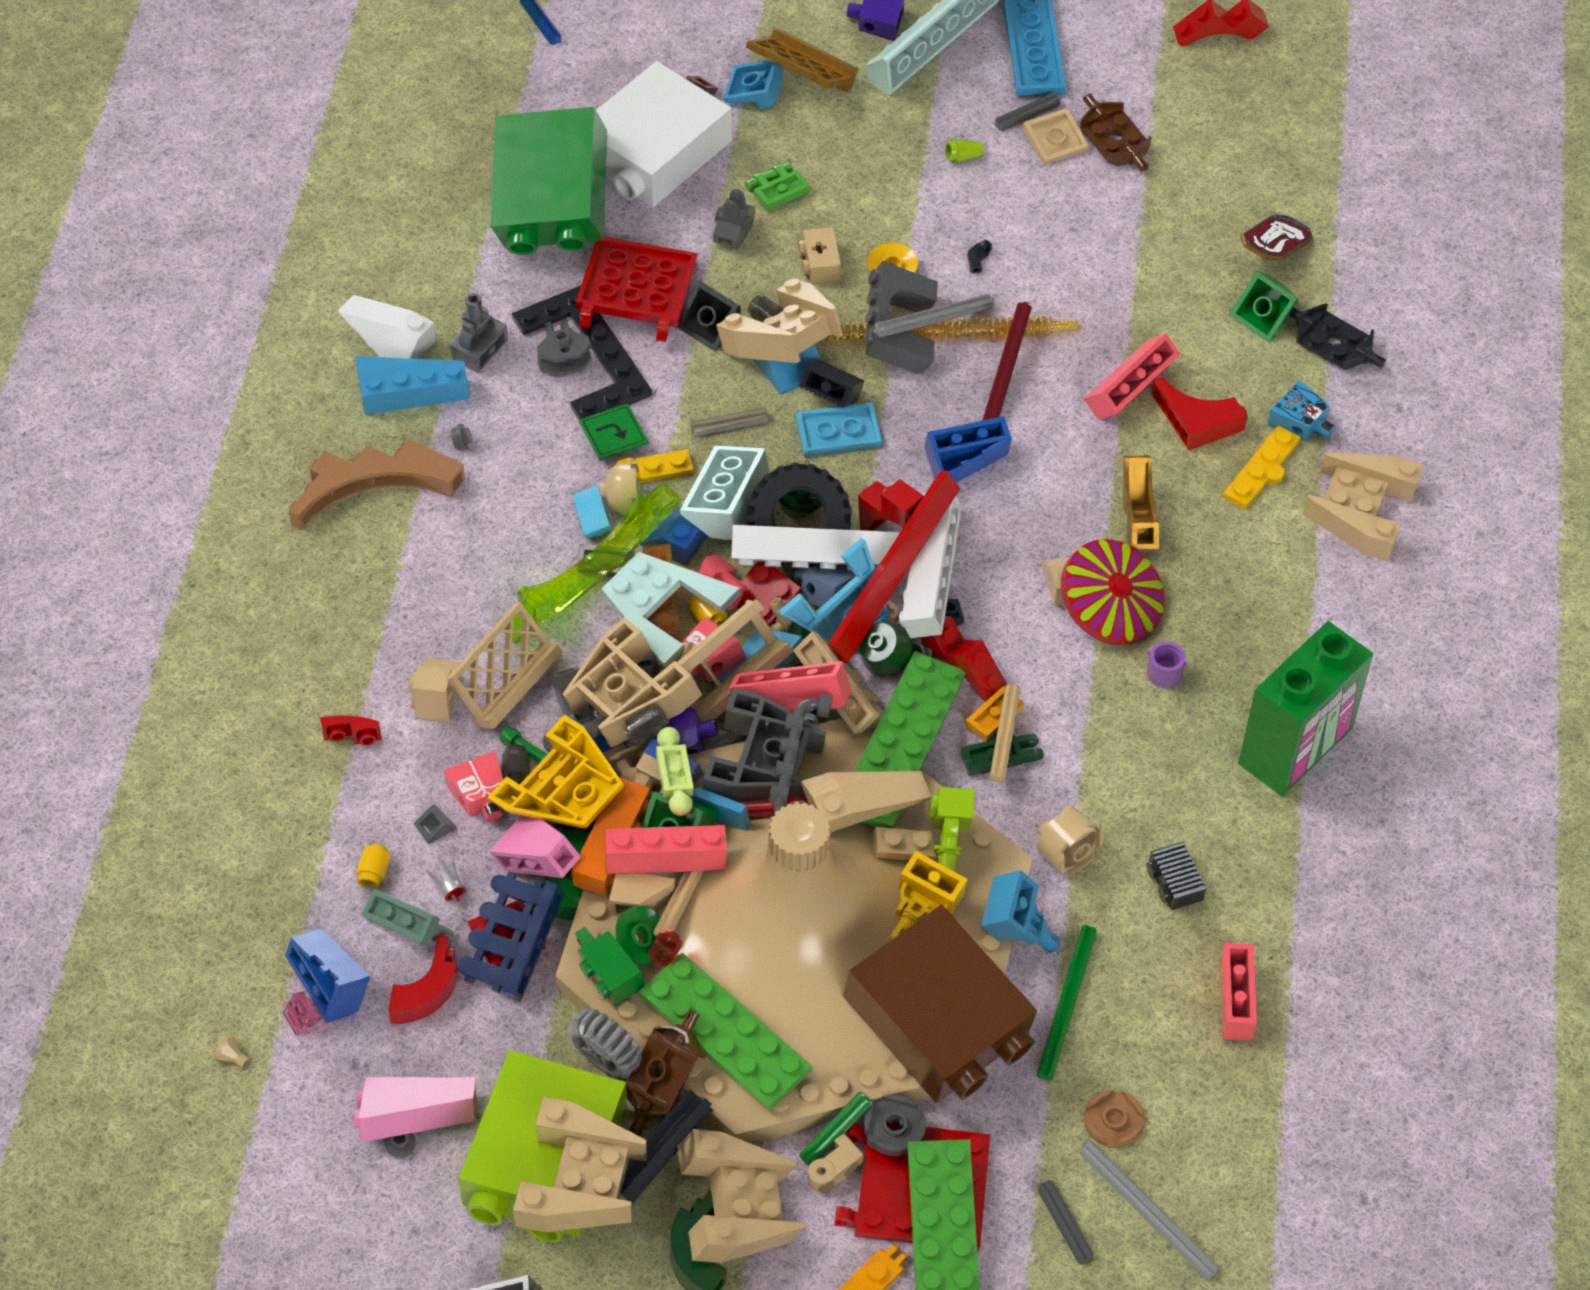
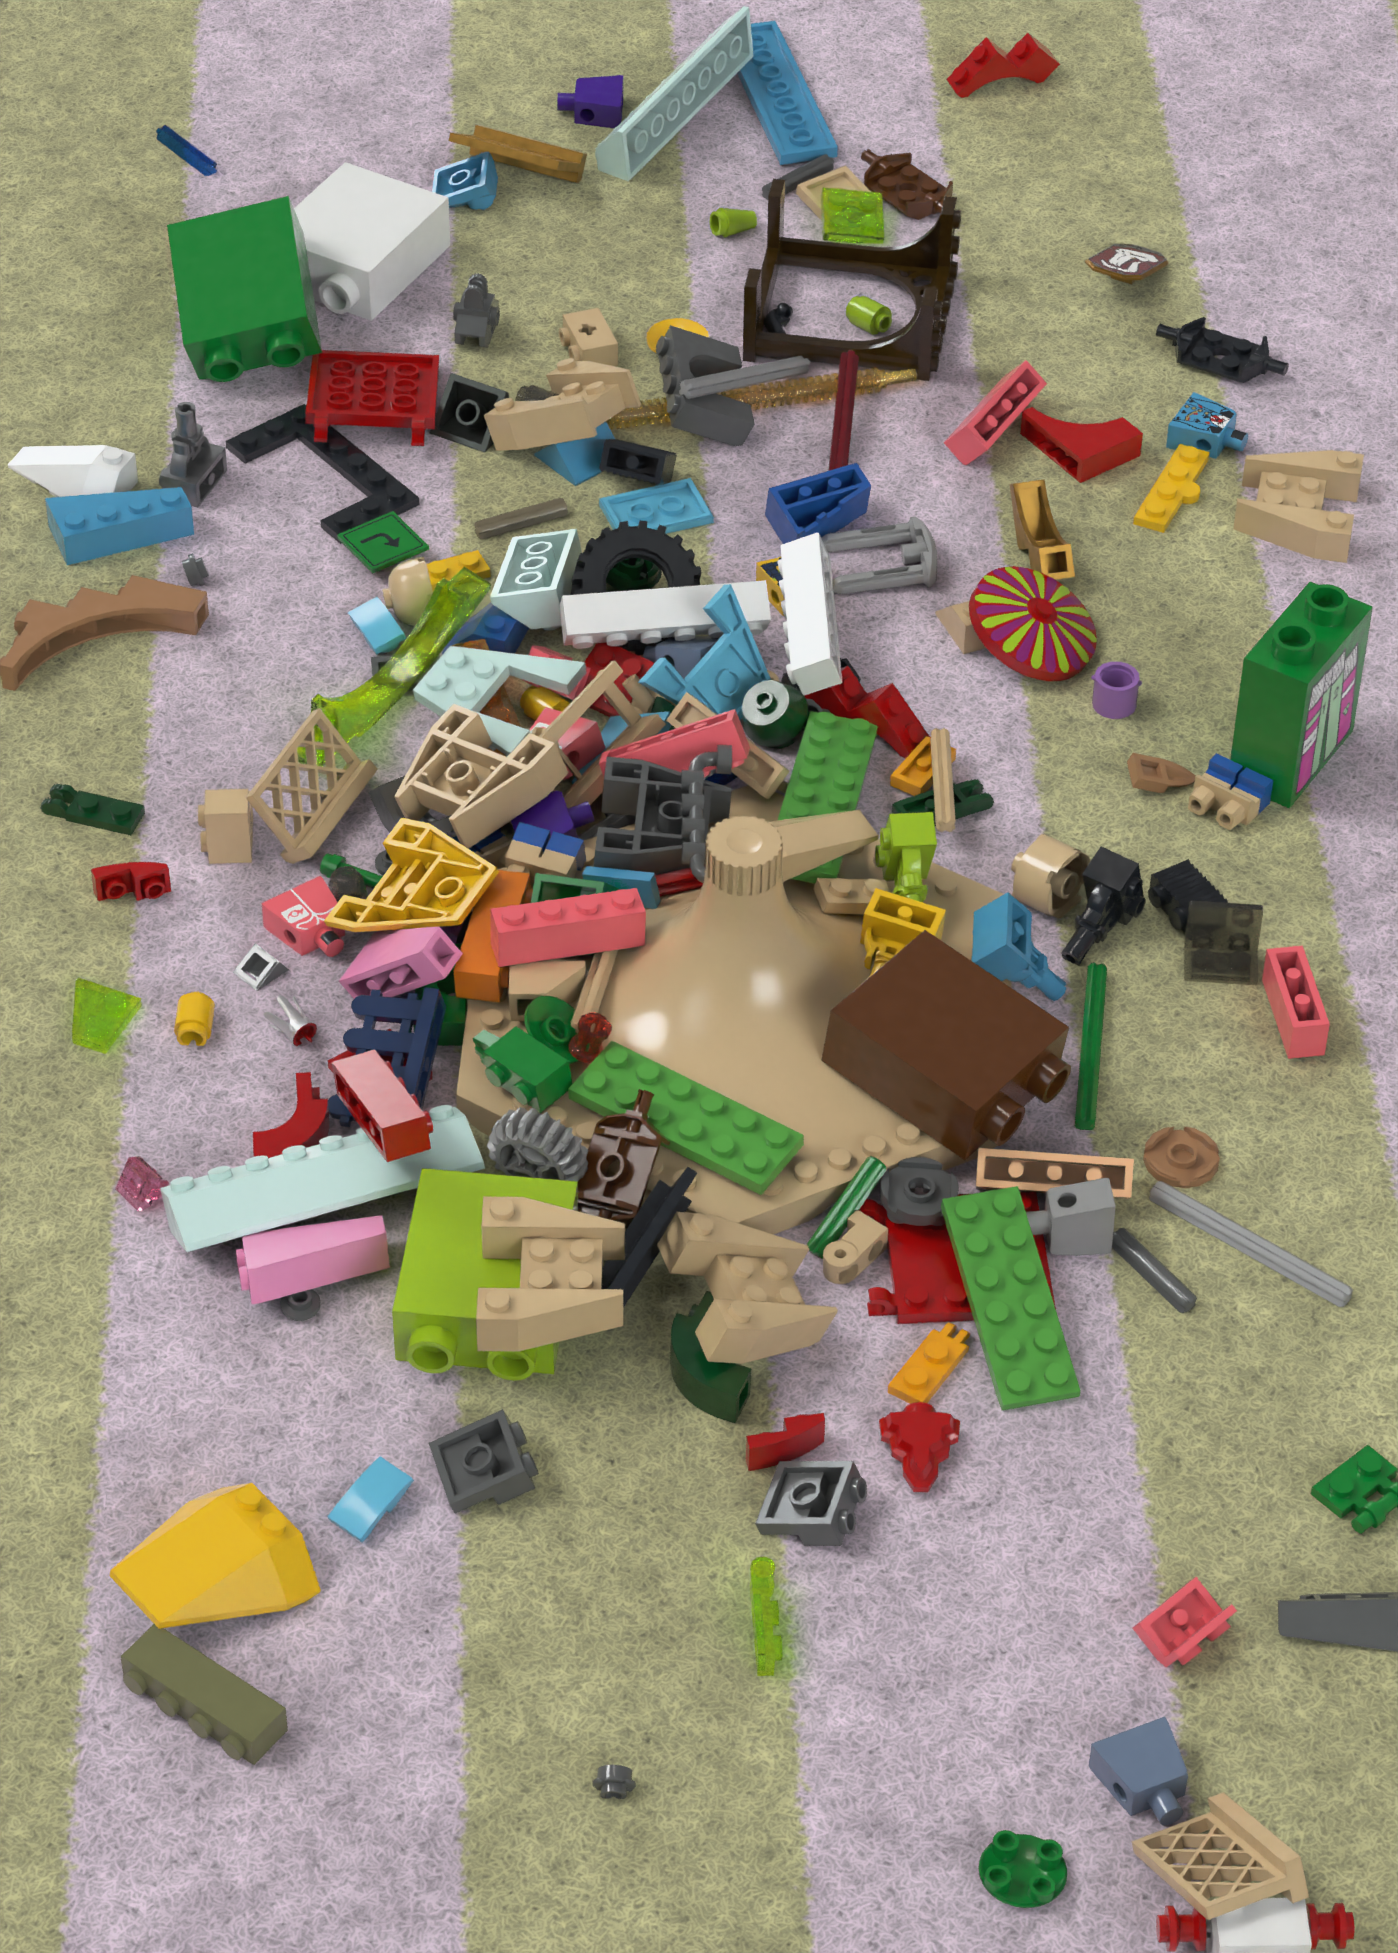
camera: 10 degrees left, 10 degrees down
(229, 1051) = (57, 1237): tan rock -> none
(303, 849) = (100, 1015): none -> clear neon green wing
(327, 973) = (166, 1132): blue wedge -> none
(338, 655) = (93, 809): none -> dark green hinge
(404, 918) = (247, 1062): sand green piece -> none
(436, 1036) = (308, 1182): none -> light aqua slope
(491, 986) = (382, 1105): none -> brick
(561, 348) = (300, 465): dark grey hinge -> none
(646, 724) = (509, 807): clear smoke brick -> none
(674, 771) = (557, 847): yellowish green plate -> none
(783, 189) = (520, 280): bright green plate -> none
(888, 503) = (754, 553): red arch -> none
(893, 567) = (770, 612): red tile -> none
(1007, 1124) = (1045, 1170): none -> light nougat brick
(1011, 1171) = (1077, 1218): none -> light grey torso
(1041, 502) = (921, 550): none -> light grey piece
(1053, 260) = (868, 315): none -> lime brick
(1062, 158) = (852, 216): none -> clear neon green plate
(1109, 213) = (926, 258): none -> dark brown arch
(1115, 866) = (1112, 896): none -> black brick
(1182, 749) = (1157, 774): none -> medium nougat plate
(1192, 927) = (1222, 942): none -> clear smoke bracket
(1236, 776) = (1230, 791): none -> tan hips
(1264, 305) = (1131, 328): green slope -> none

